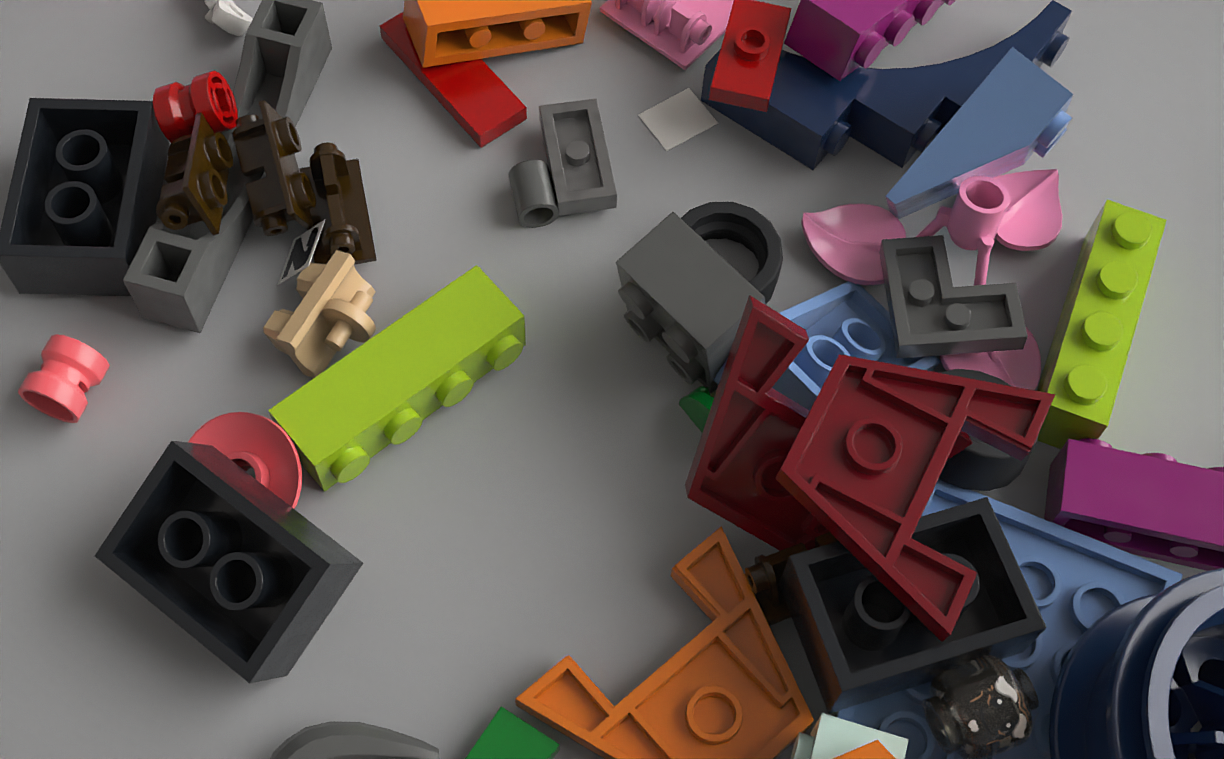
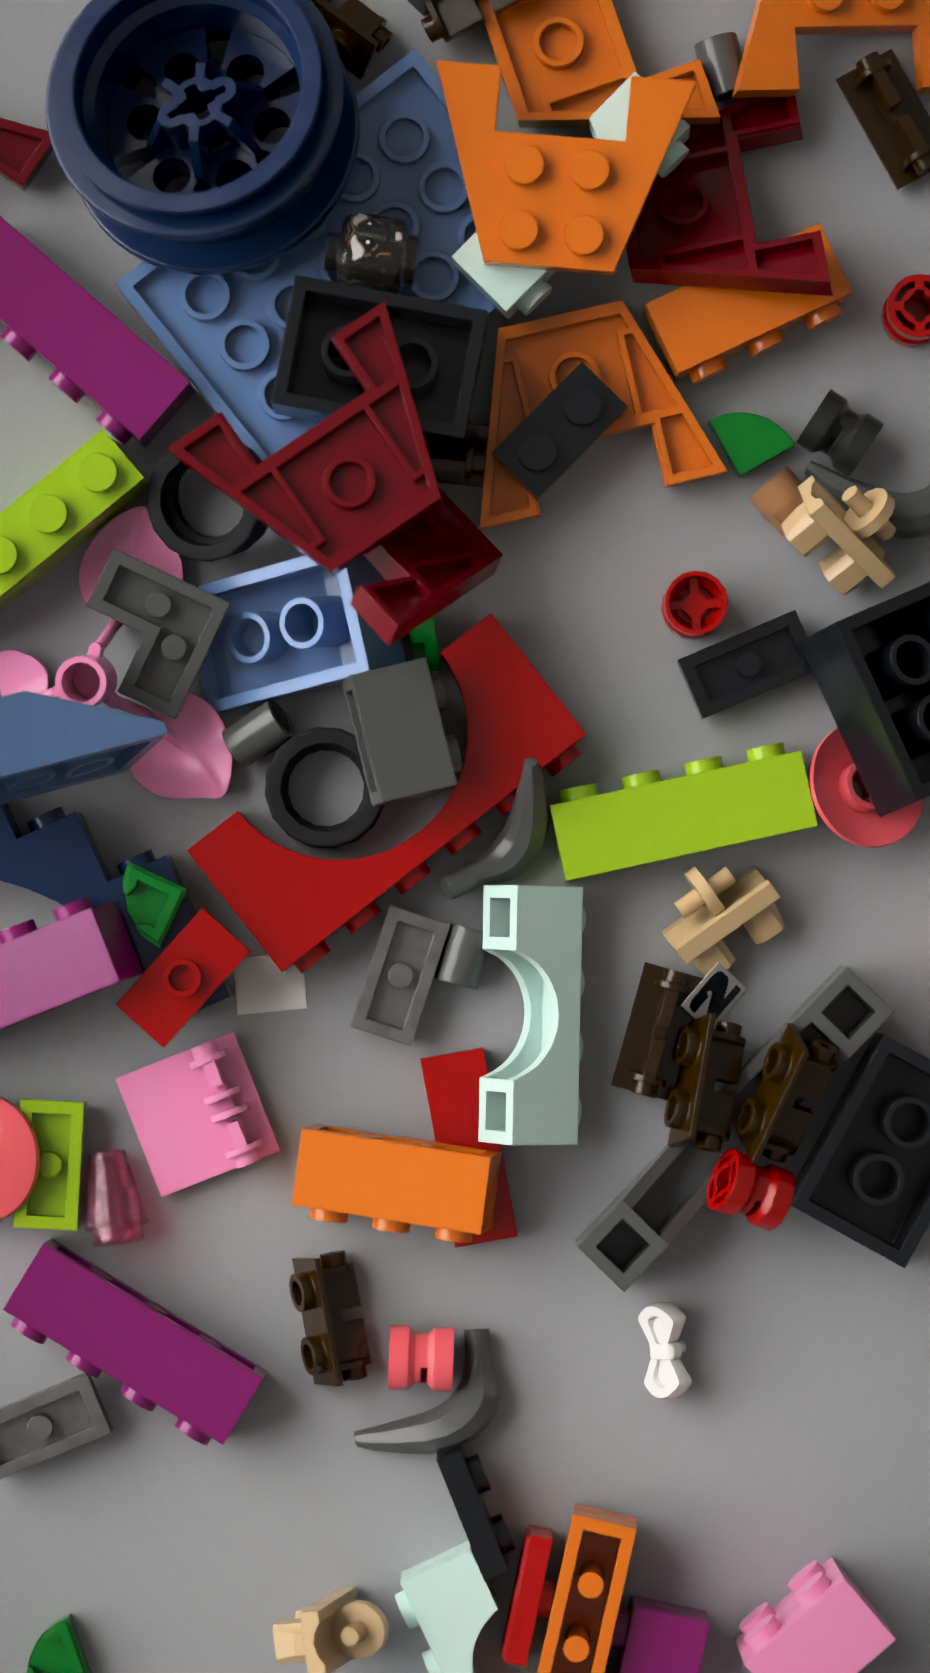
camera: 145 degrees left, 25 degrees up
(364, 694) = (858, 552): none -> tan hips
(407, 534) = (745, 665): none -> black plate
(420, 114) = (537, 1088): none -> light aqua arch
(444, 703) = (778, 498): none -> medium nougat hose
(478, 545) = (696, 595): none -> red wheel
(542, 277) = (515, 843): none -> dark grey piece
(590, 370) = (302, 900): none -> red arch
(699, 647) = (559, 431): none -> black plate
(805, 273) = (258, 733): none -> dark grey hinge
(810, 95) = (151, 902): none -> green tile

